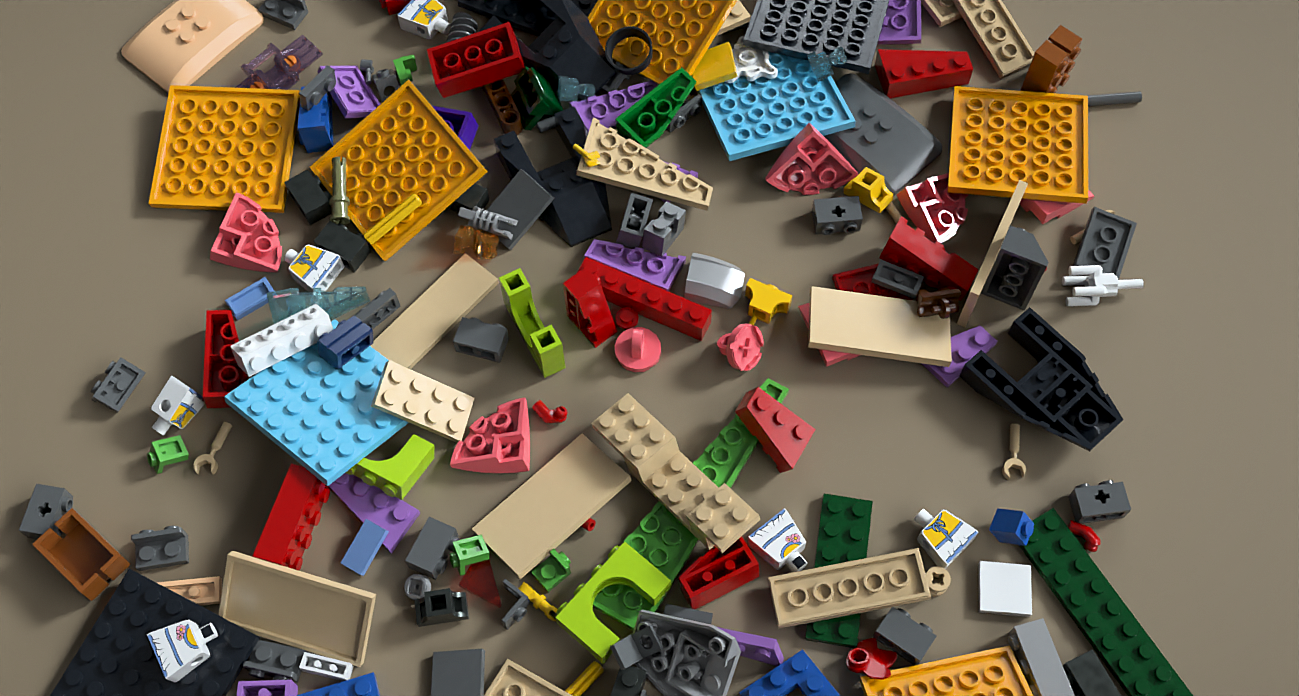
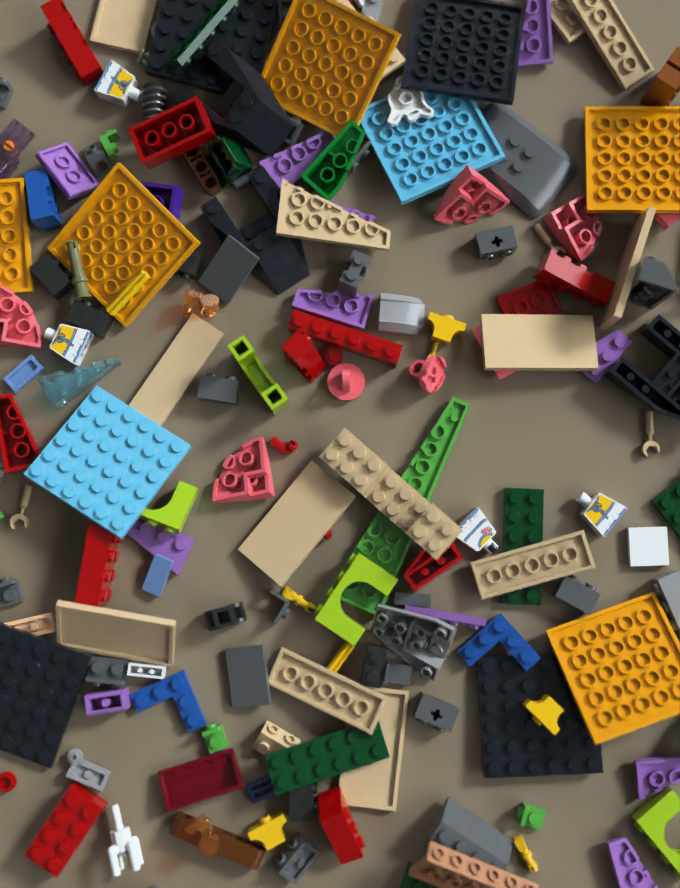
camera: 10 degrees left, 20 degrees up
(181, 647) = (35, 676): white torso -> none
(281, 340) = (59, 416): white brick -> none
(317, 88) = (37, 183): dark grey plate -> none
(345, 342) = (110, 410): dark blue brick -> none
(366, 66) = (77, 142): dark grey hand -> none
(379, 308) = (128, 375): dark grey bracket -> none
(416, 586) = (204, 600): light grey tile -> none
(422, 401) = (182, 454): plate -> none
(432, 548) = (210, 569): dark grey brick -> none
(468, 552) = (239, 571): bright green bracket -> none
(481, 582) = (251, 588): clear red tile -> none
(487, 221) = (206, 284): light grey hinge -> none
(552, 570) = (304, 574): bright green bracket -> none
(569, 89) = (256, 149): clear light blue piece -> none
(589, 158) = (286, 221): yellow hand -> none
(621, 34) = (290, 95): black tyre -> none
(631, 648) = (375, 633): dark grey bracket -> none
(634, 221) = (328, 269): dark grey brick -> none
(715, 67) = (380, 113): yellow tile -> none
(776, 428) = (464, 442): wedge -> none
(822, 64) = (471, 101): clear light blue piece -> none
(870, 189) = (520, 216): yellow brick -> none
(870, 660) = (554, 613): red plate -> none
(897, 279) = (550, 297): dark grey plate -> none
(921, 71) = (554, 94): red wedge -> none
(937, 589) = (594, 547): tan wheel -> none
(938, 303) = (586, 318): reddish brown hips -> none
(1011, 526) = (652, 499): blue brick -> none

